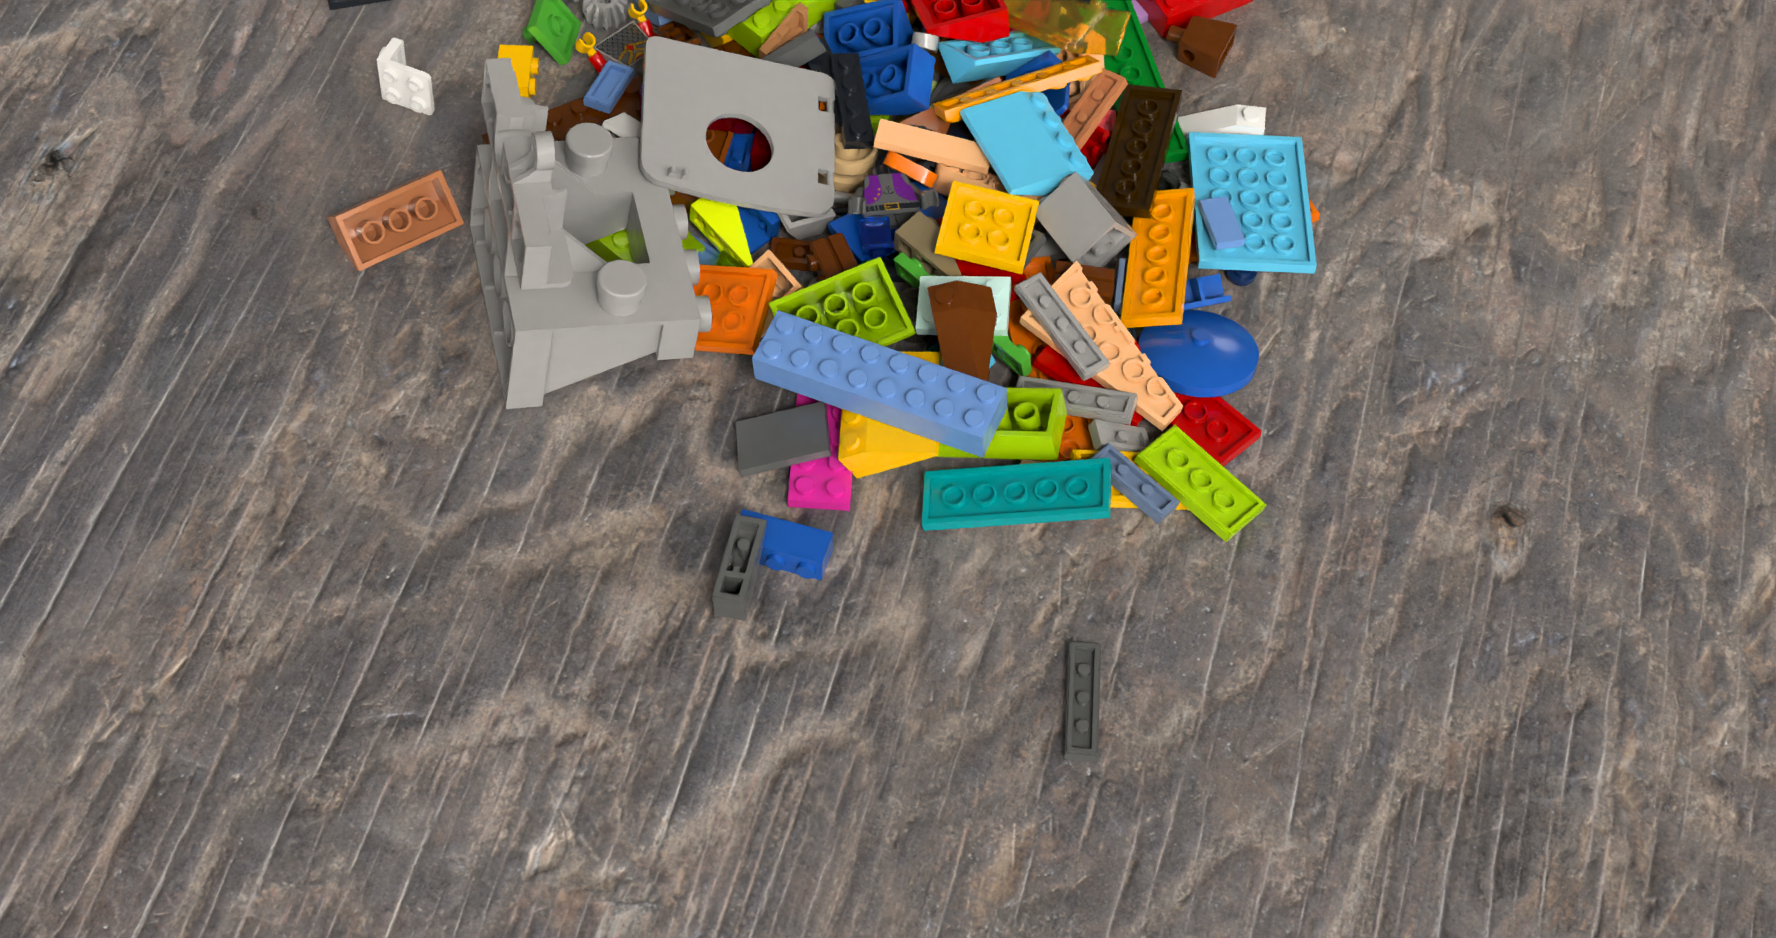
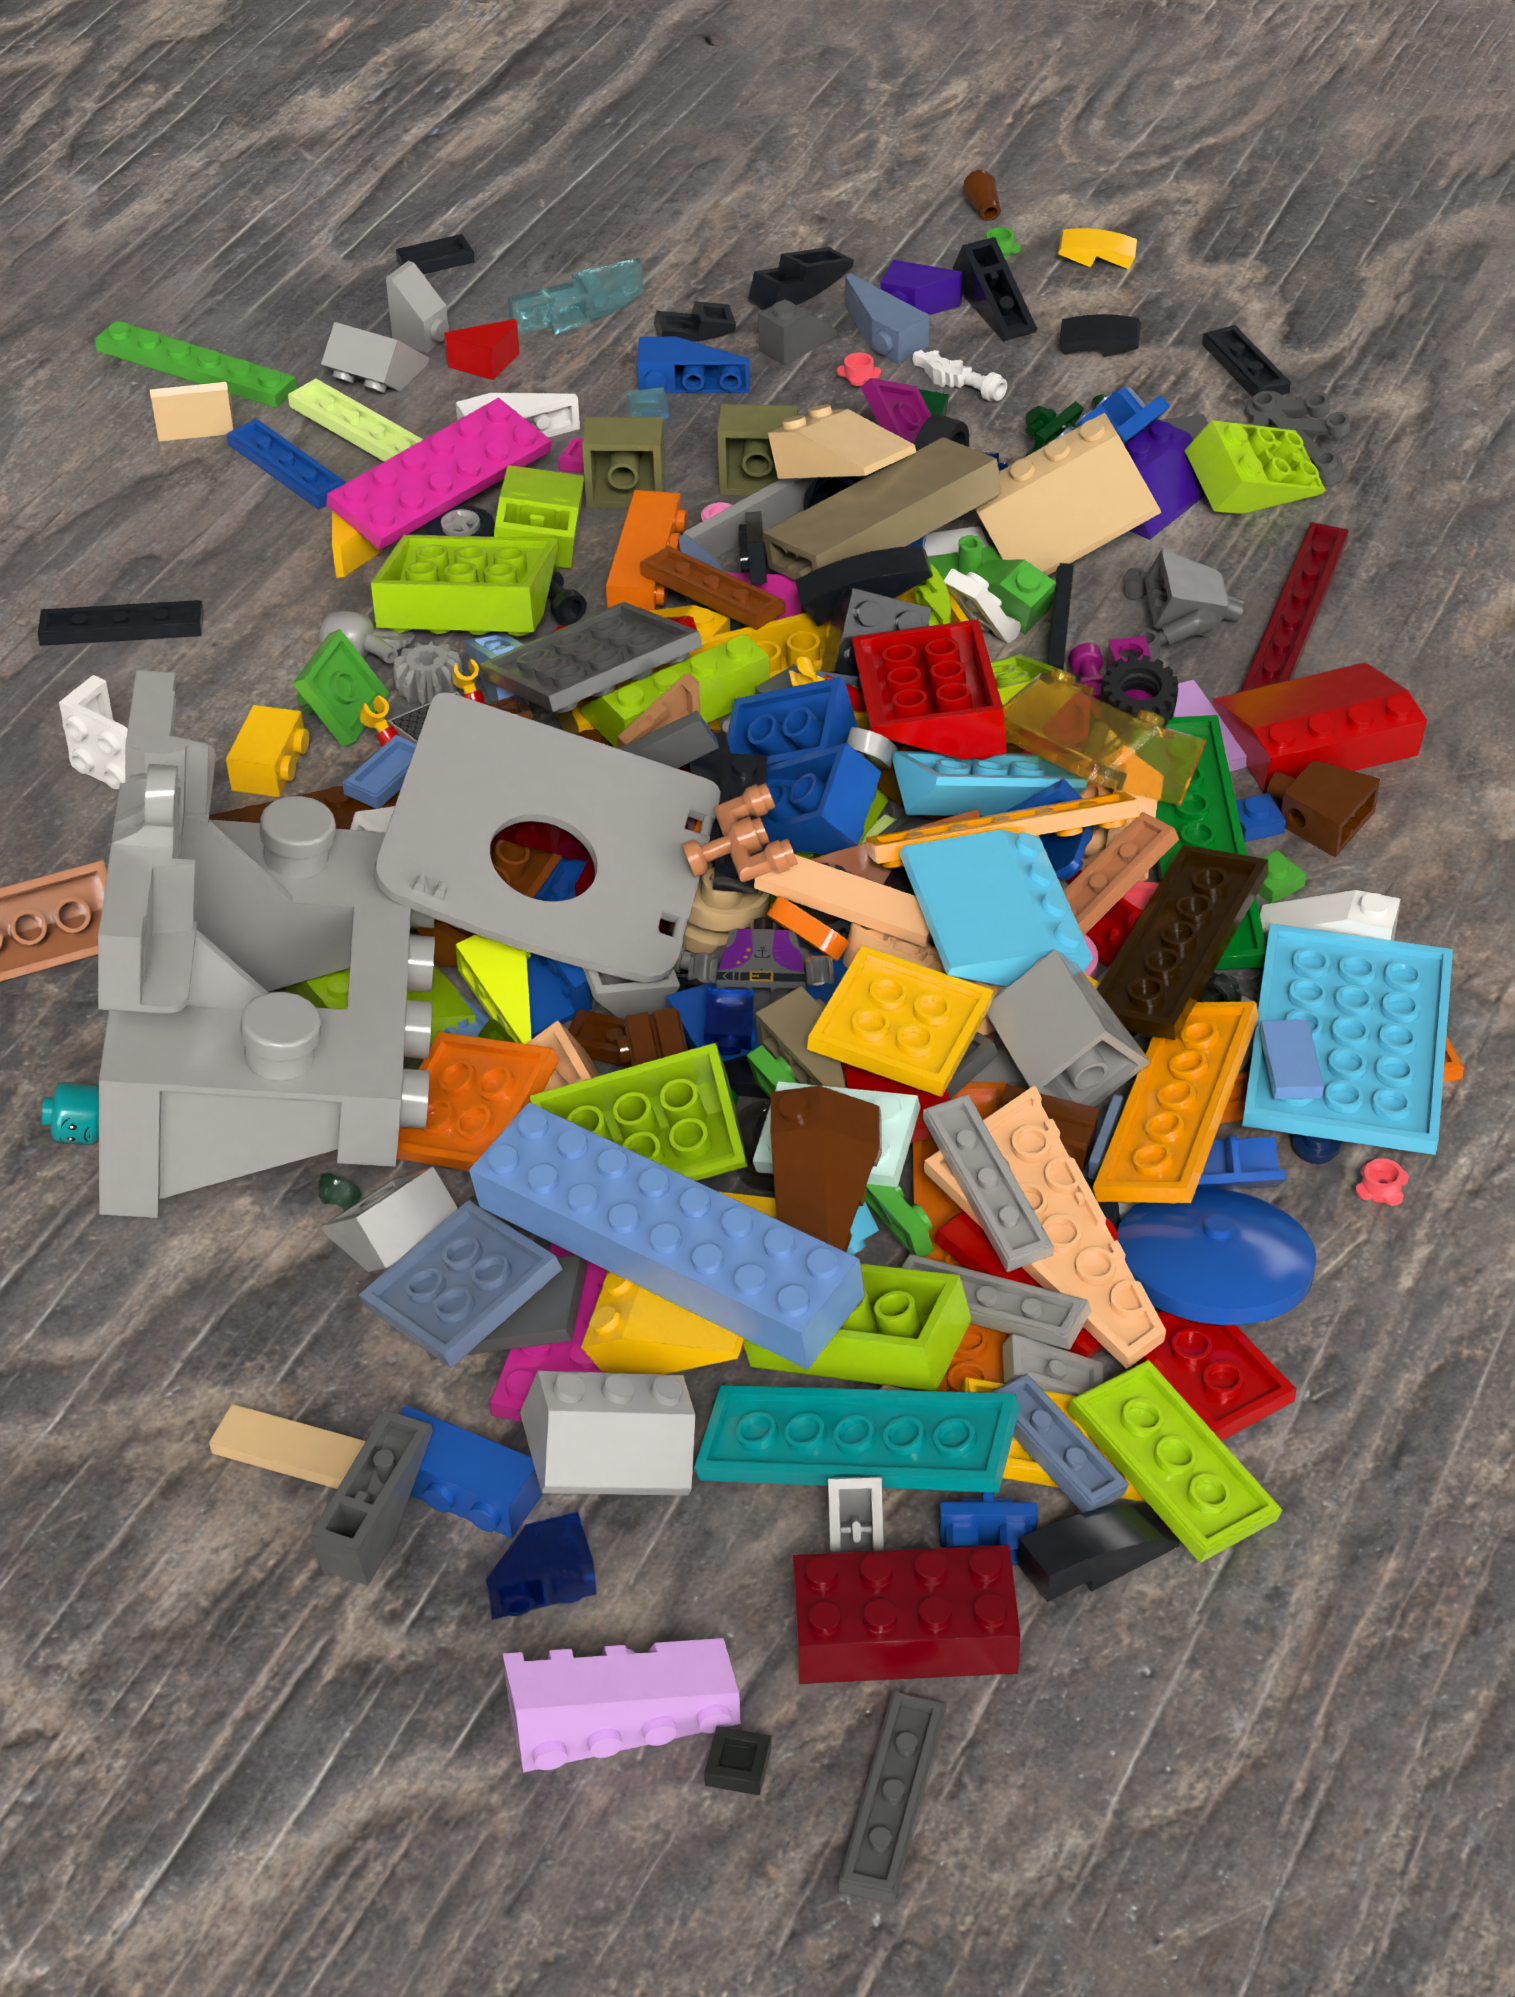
camera: 15 degrees right, 10 degrees down
(472, 344) = (72, 1113): none -> teal head
(653, 375) = (338, 1191): none -> clear green piece
(674, 543) = (285, 1446): none -> tan tile
(696, 390) = (392, 1219): none -> light grey slope
(752, 427) = (460, 1283): none -> sand blue plate
(850, 595) = (542, 1568): none -> clear blue slope
(861, 115) = (743, 838): none -> nougat piece
(870, 510) = (610, 1433): none -> slope
(915, 669) = (617, 1700): none -> lavender wedge
(991, 693) = (738, 1760): none -> pearl dark grey plate
(1026, 550) = (855, 1514): none -> light grey slope
(1067, 595) = (906, 1614): none -> dark red brick
(1102, 534) = (986, 1522): none -> blue hips
(1165, 56) = (1260, 817): none -> blue plate
(1165, 542) = (1093, 1548): none -> black slope
(1190, 96) = (1282, 879): none -> bright green plate
(1285, 293) = (1382, 1182): none -> coral plate

